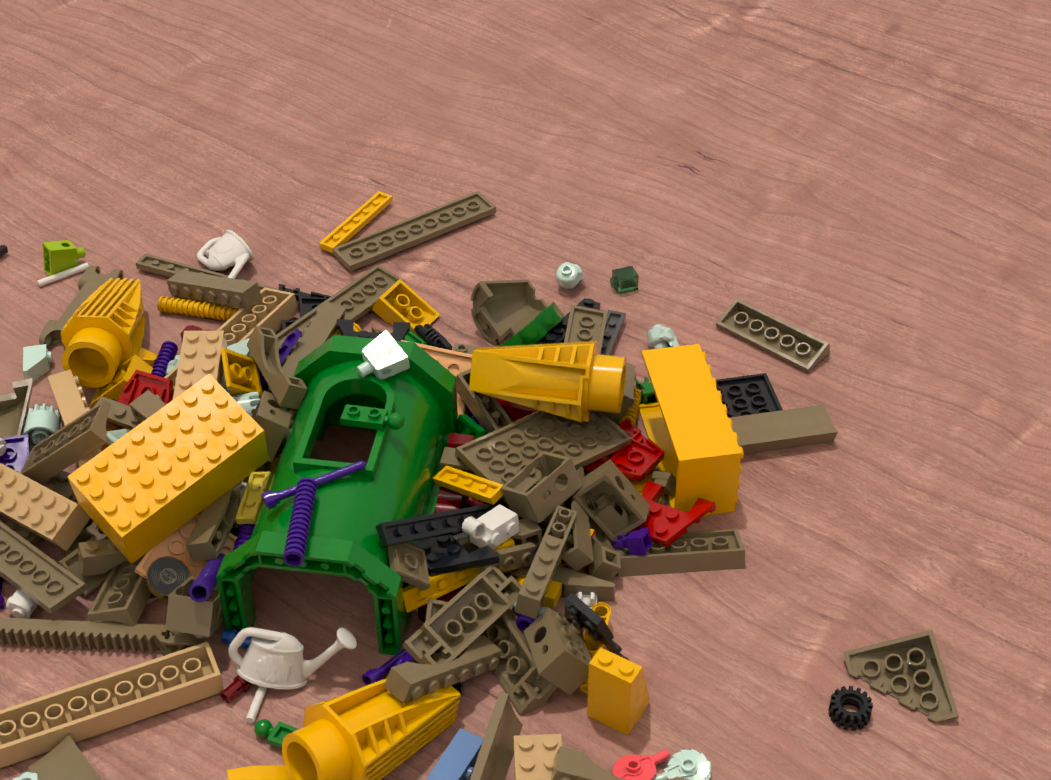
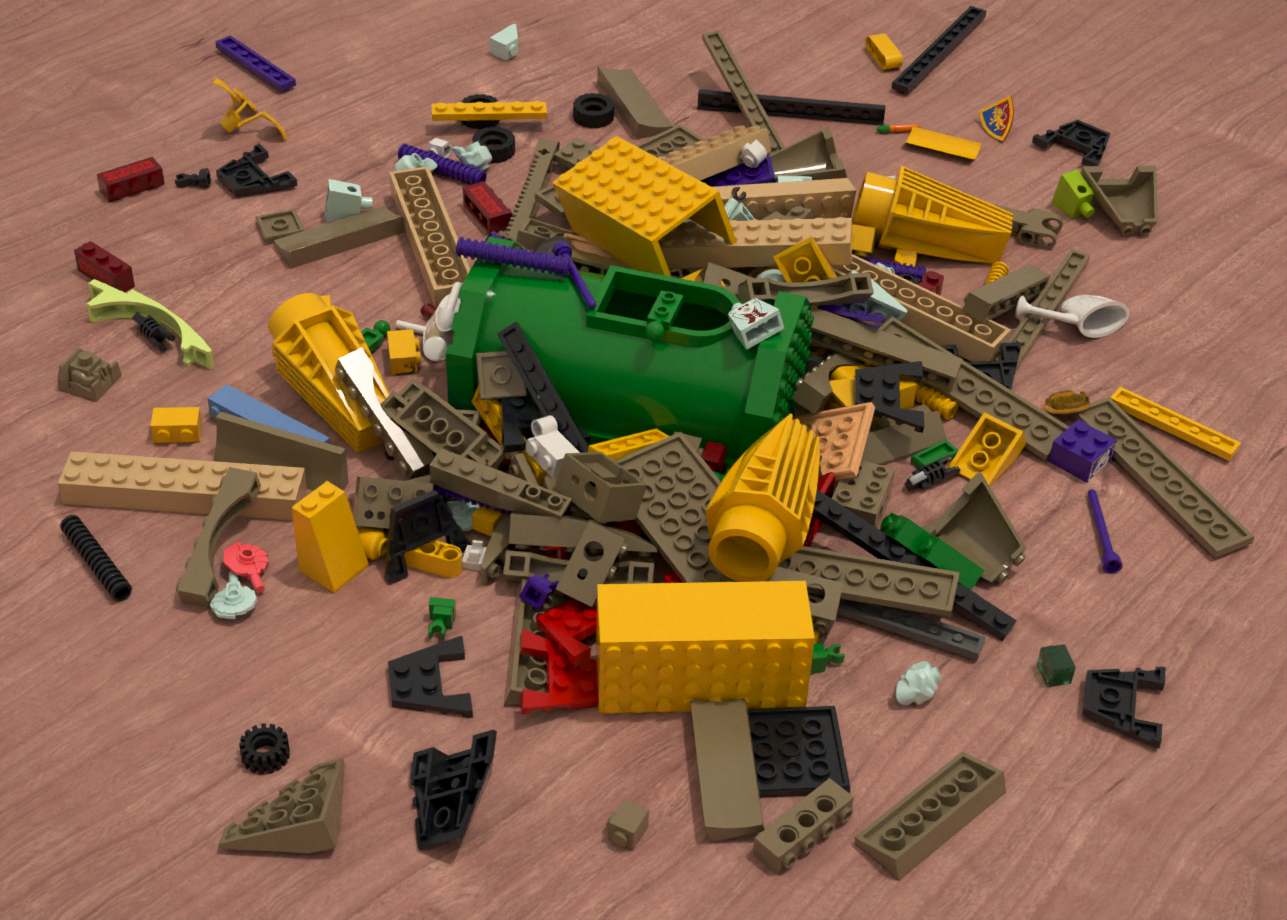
camera: 95 degrees right, 0 degrees up
(42, 668) = (486, 207): none -> dark red brick
(61, 275) = (1056, 207): white bar -> none
(68, 444) = (721, 174): dark tan arch -> none
(69, 224) = (1126, 201): none -> dark tan cone
(297, 697) = (402, 351): none -> yellow hinge
(340, 269) = (1067, 402): none -> clear yellow tile
(400, 260) = (1082, 450): none -> dark purple brick
(511, 255) = (1110, 561): none -> dark purple piece
(569, 275) = (1059, 605): light aqua head -> none
(646, 258) = (1112, 701): none -> black wing
(664, 614) = (443, 615): none -> green piece
(721, 523) = (566, 683): none -> red wing
(737, 623) = (417, 680): none -> black wing
(810, 390) = (803, 826): none -> dark tan brick
(844, 477) = (628, 824): none -> dark tan brick
(857, 568) = (450, 789): none -> black wedge

